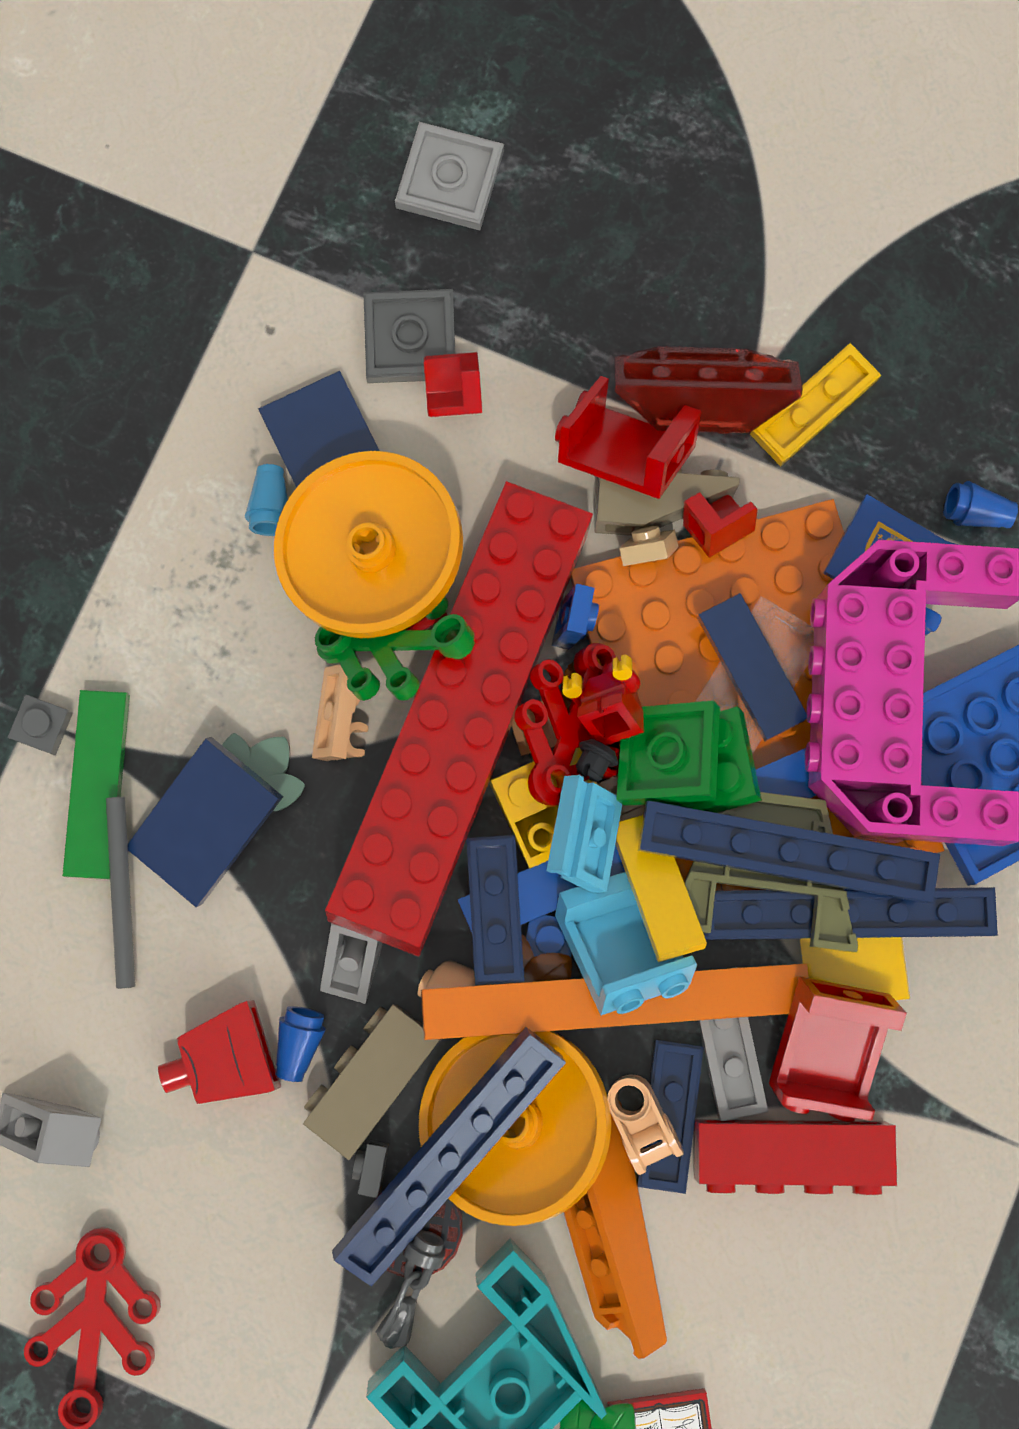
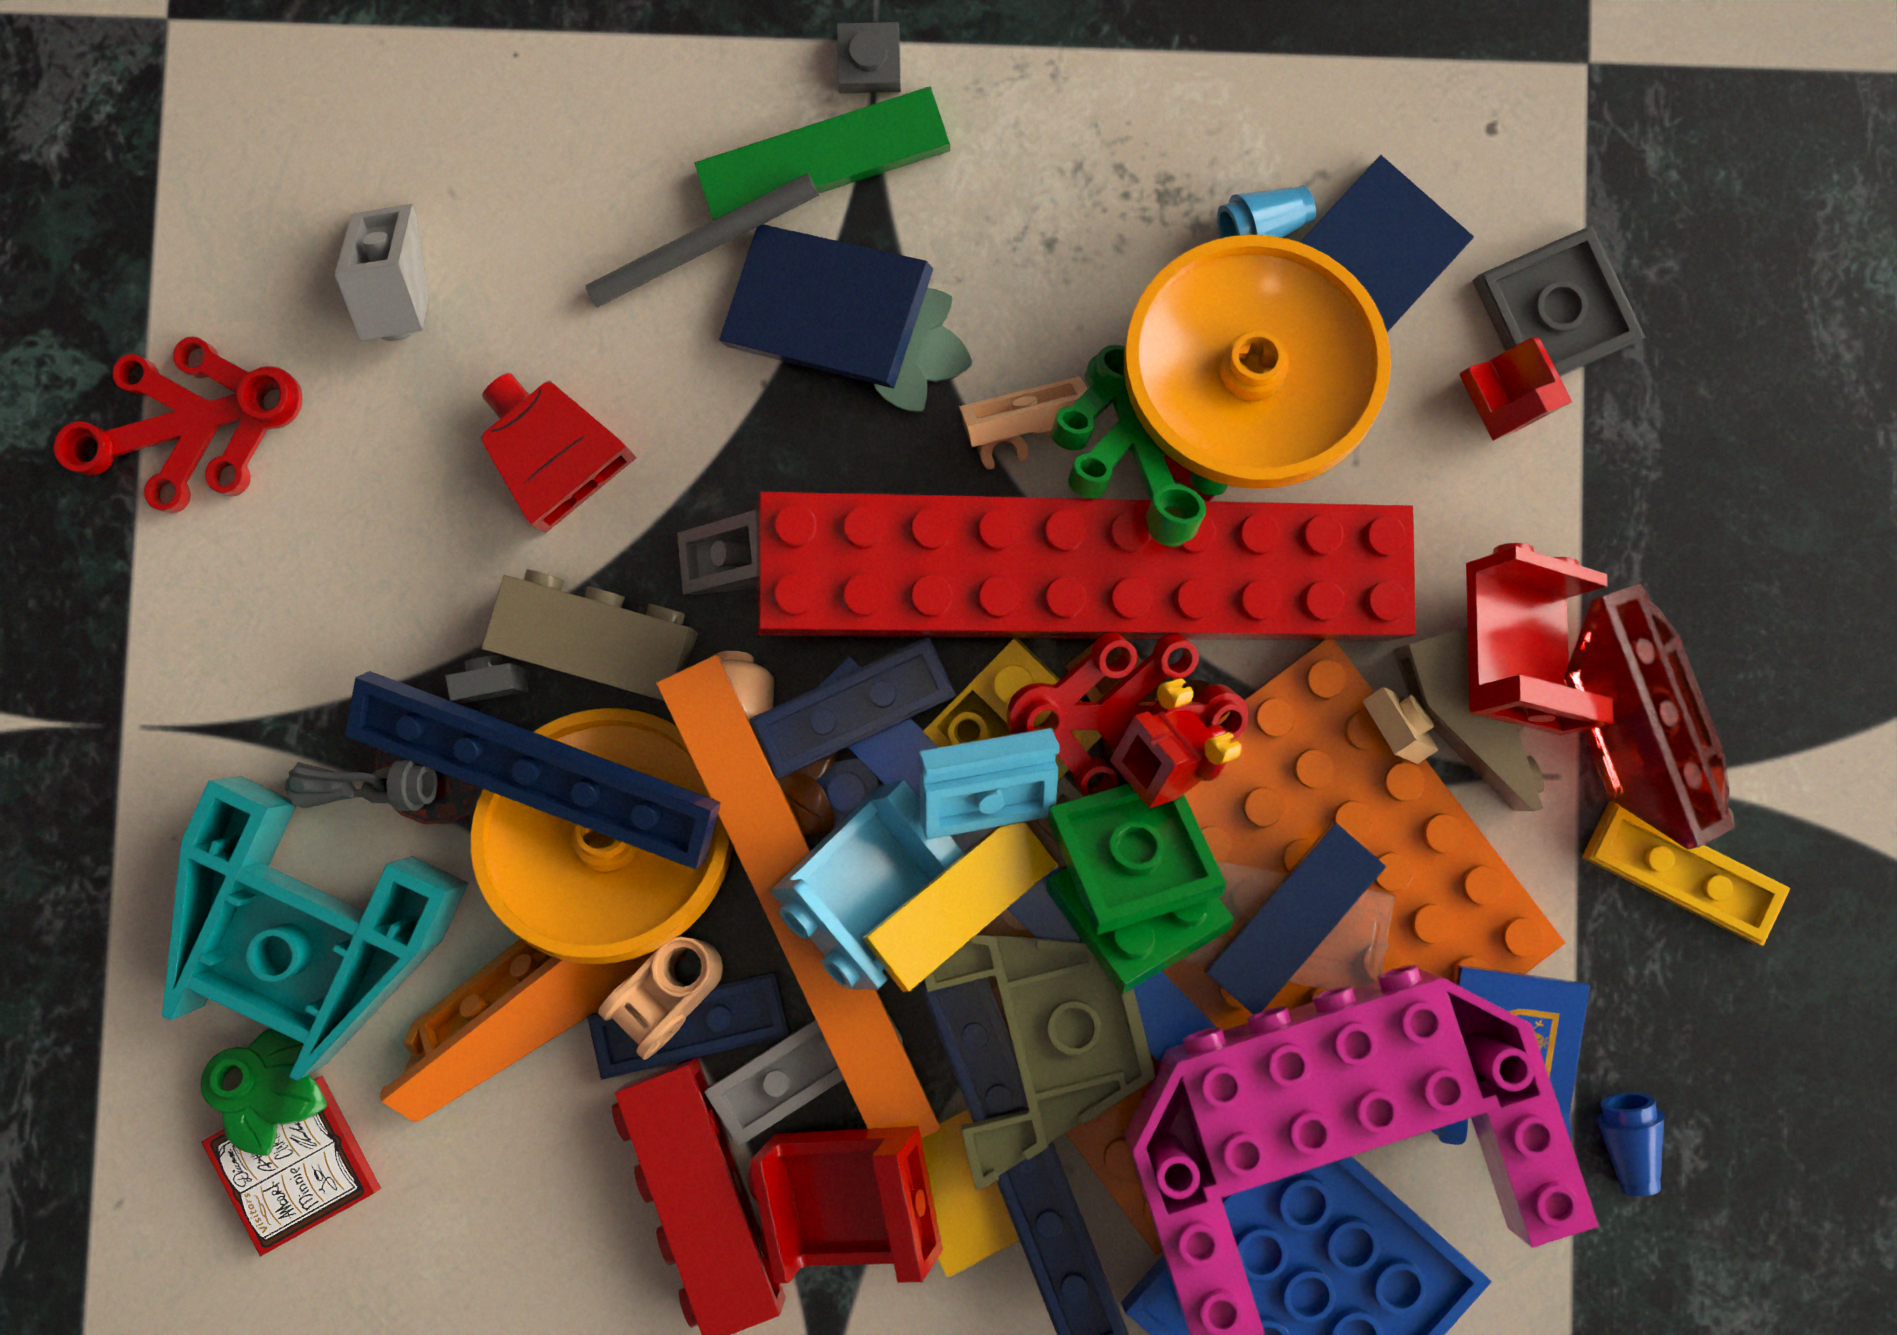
camera: 75 degrees right, 5 degrees up
(297, 1042) = (604, 530): blue cone -> none
(449, 176) = (1800, 272): light grey tile -> none
(575, 616) = (1269, 665): blue plate -> none
(595, 759) = (1090, 760): black piece -> none
(718, 523) = (1470, 804): red panel -> none
(789, 852) = (1068, 1057): dark blue plate -> none

